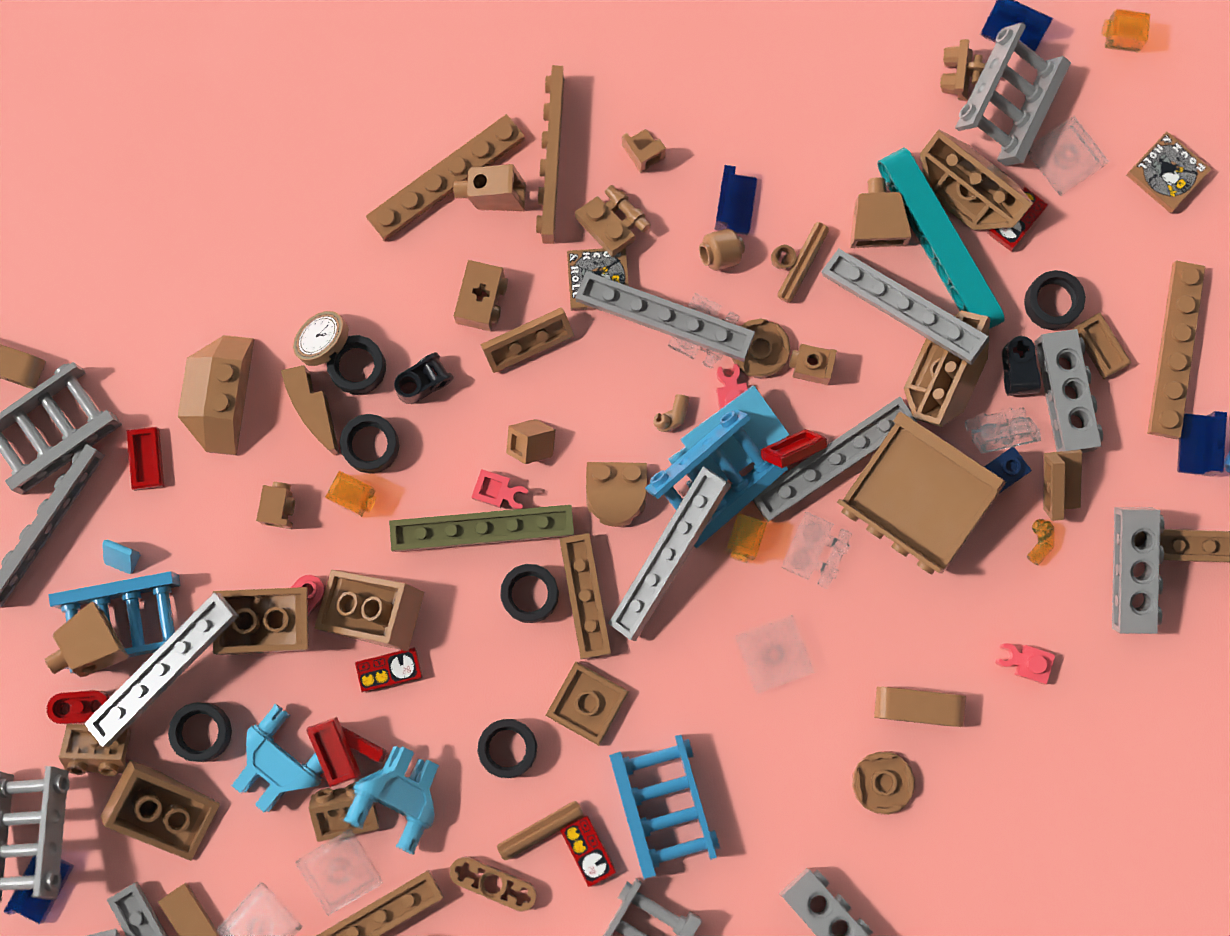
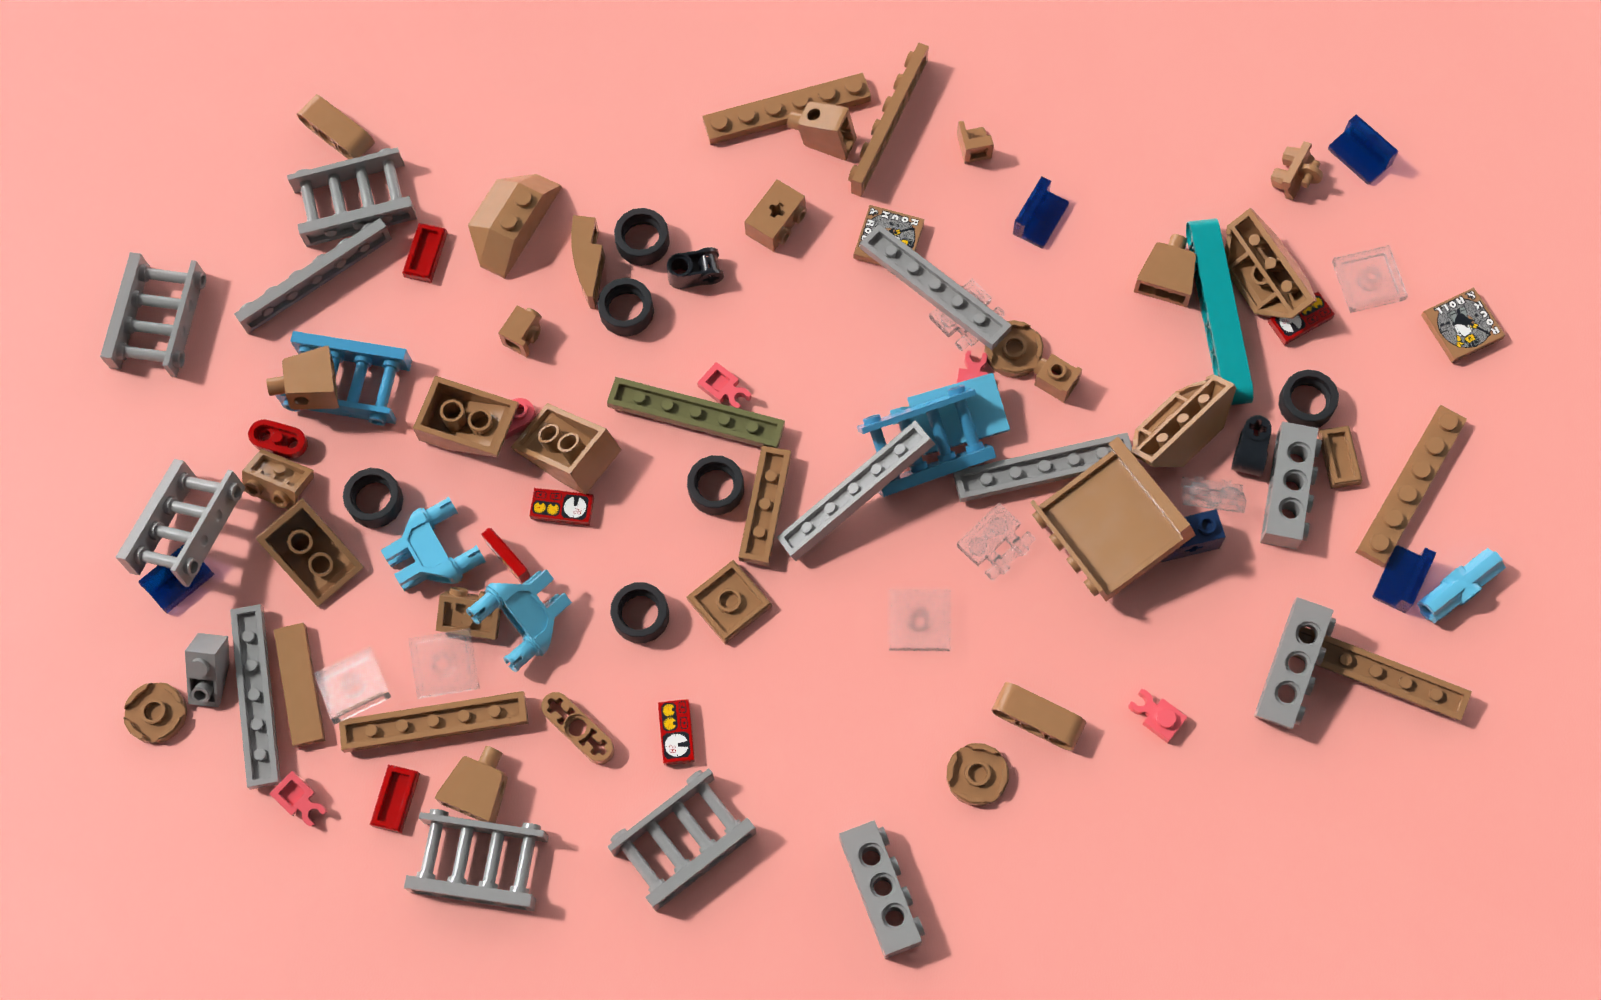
camera: 25 degrees right, 10 degrees down
(119, 556) = (367, 324): medium azure slope -> none
(161, 669) = (362, 425): plate -> none
(320, 338) = (619, 200): tile -> none
(333, 751) = (482, 552): red tile -> none
(351, 494) = (591, 343): clear yellow brick -> none
(527, 340) = (803, 267): medium nougat plate -> none
(530, 441) = (770, 354): medium nougat panel -> none
(540, 830) = (639, 696): medium nougat axle -> none
(606, 227) = (913, 194): medium nougat plate -> none
(616, 491) = (830, 425): medium nougat slope -> none
(642, 827) = (734, 728): dark azure fence -> none
(673, 418) = (909, 380): medium nougat arm -> none
(721, 249) = (1011, 249): medium nougat head -> none
(745, 538) = (933, 506): clear yellow brick -> none
(788, 260) = (1061, 270): medium nougat hinge -> none
(793, 448) = (1008, 441): red tile -> none
(803, 262) = (1083, 287): medium nougat axle -> none
(905, 306) = (1161, 352): light grey plate -> none
(1037, 96) = (1359, 215): light grey fence -> none
(1046, 541) = (1218, 612): clear yellow arm -> none
(1062, 482) = (1253, 561): medium nougat panel -> none
(1126, 30) = (1467, 186): clear yellow brick -> none

